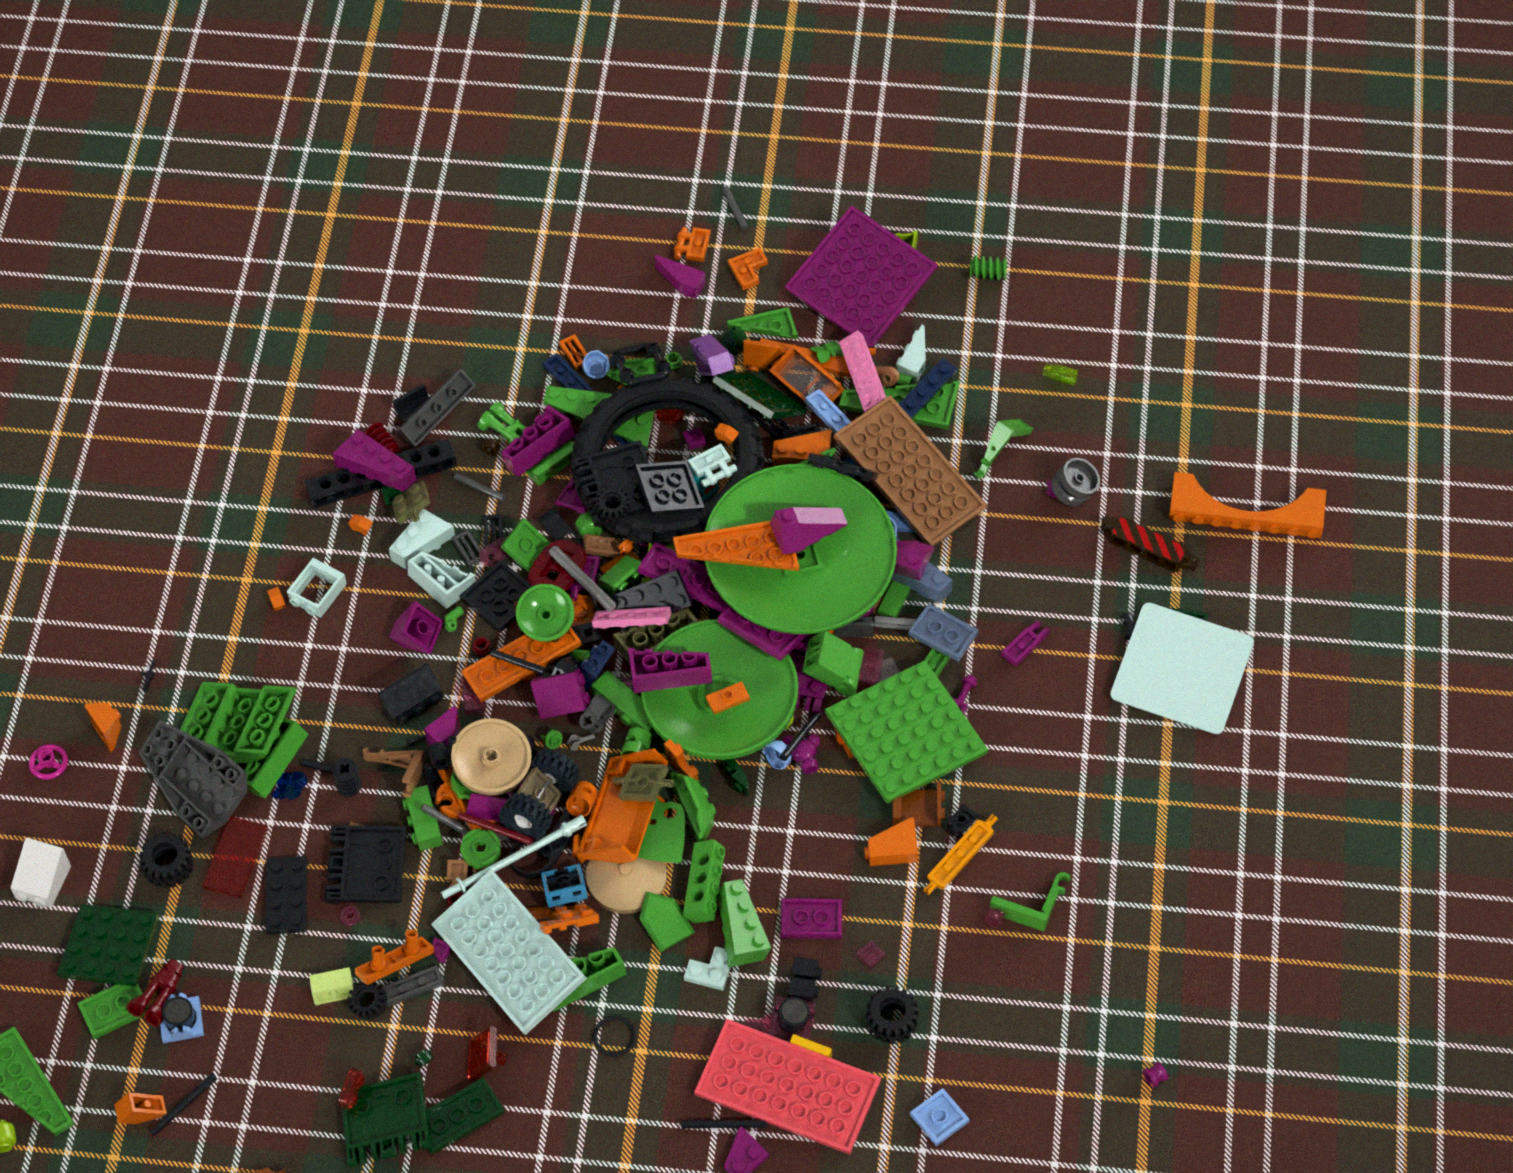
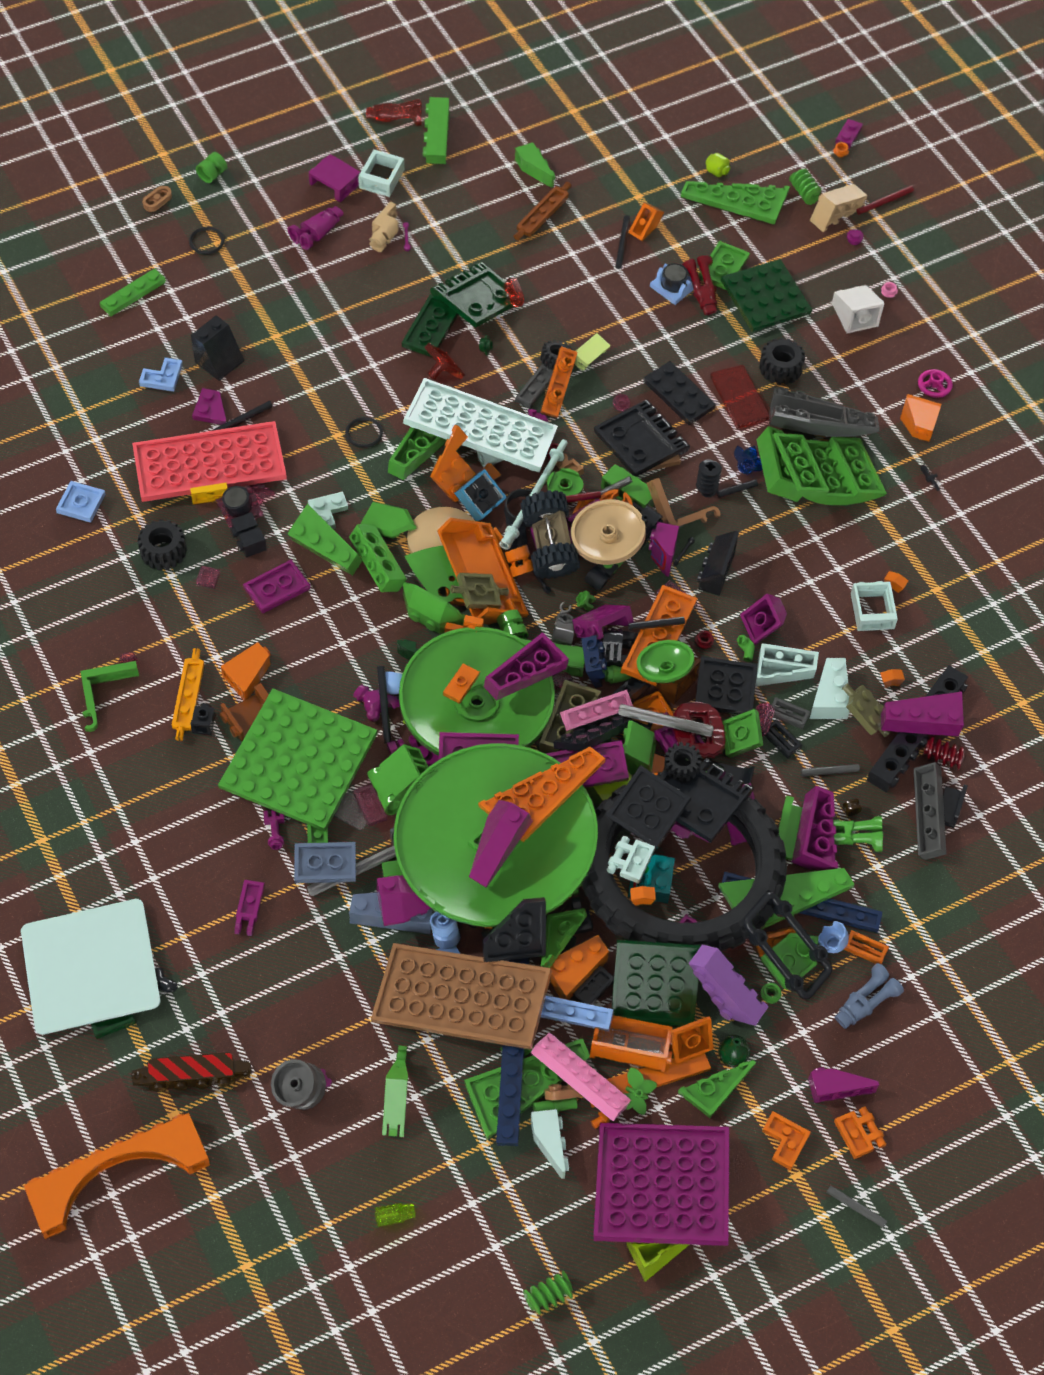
camera: 140 degrees right, 0 degrees up
(616, 316) = (858, 1006): none -> sand blue piece

